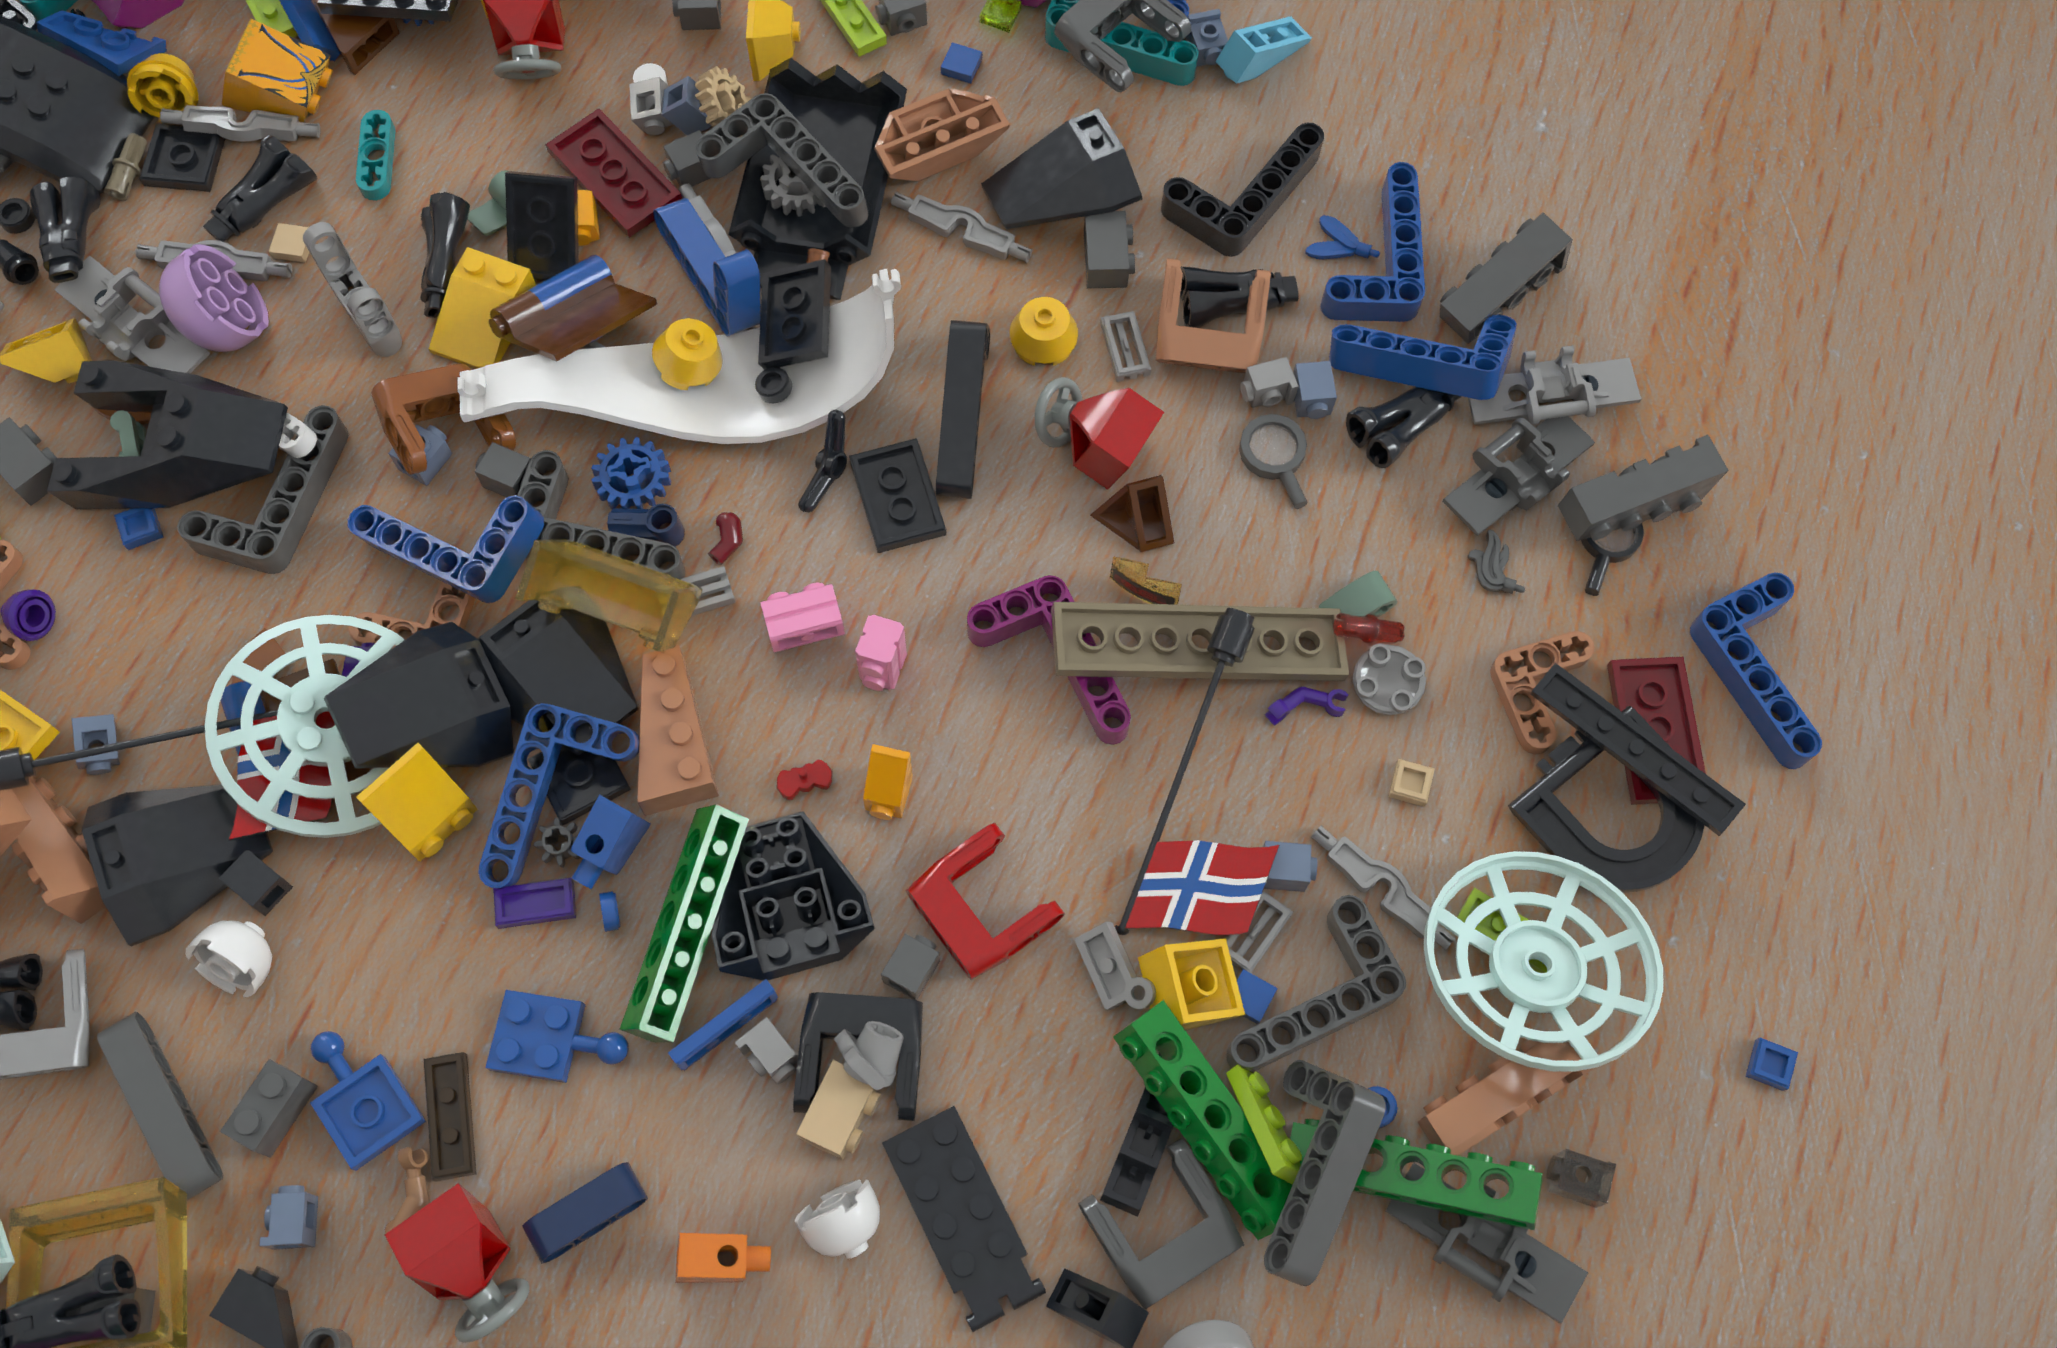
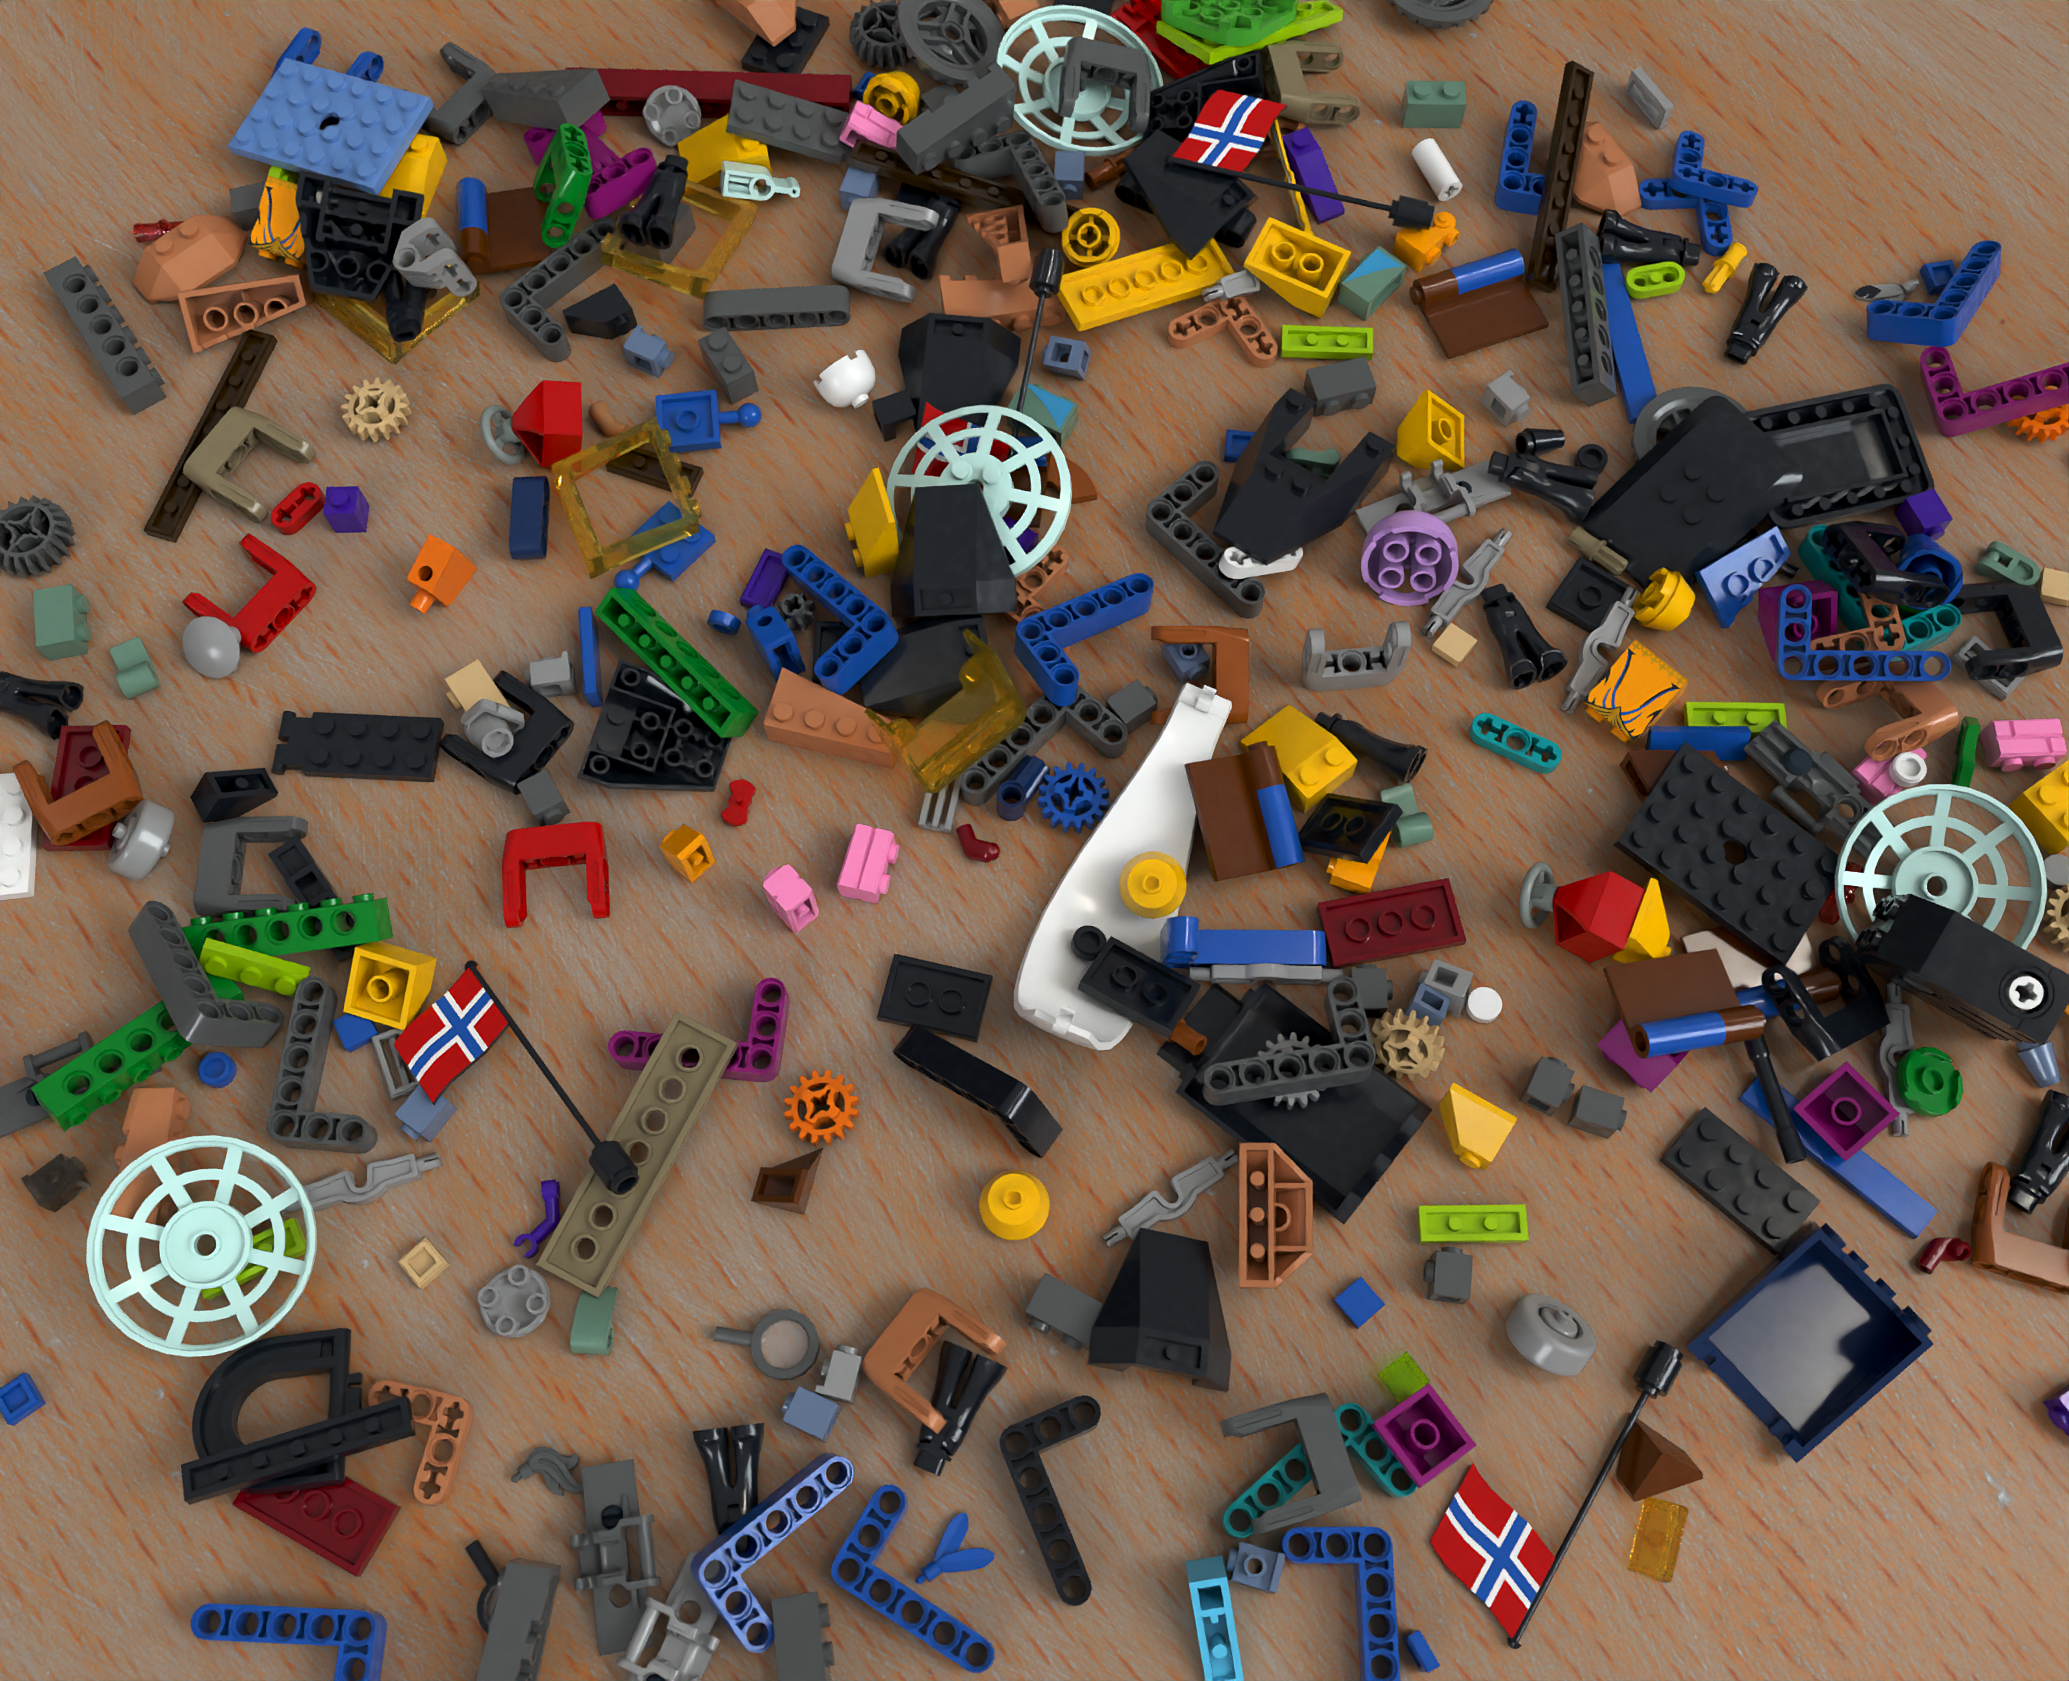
camera: 125 degrees right, 0 degrees up
(29, 614) = (1199, 350): dark purple brick -> none
(176, 711) = (1052, 412): none -> sand green brick
(557, 1150) = (601, 558): none -> clear yellow windscreen
(829, 462) = (993, 957): black piece -> none
(842, 1220) = (408, 661): white cylinder -> none
(1042, 524) = (814, 1120): none -> orange gear
(1103, 429) = (871, 1189): red piece -> none
(1112, 969) = (442, 936): light grey hinge -> none
(1130, 370) = (960, 1288): light grey tile -> none
(1133, 578) = (734, 1141): clear yellow slope -> none
(1368, 628) = (563, 1309): clear red axle -> none

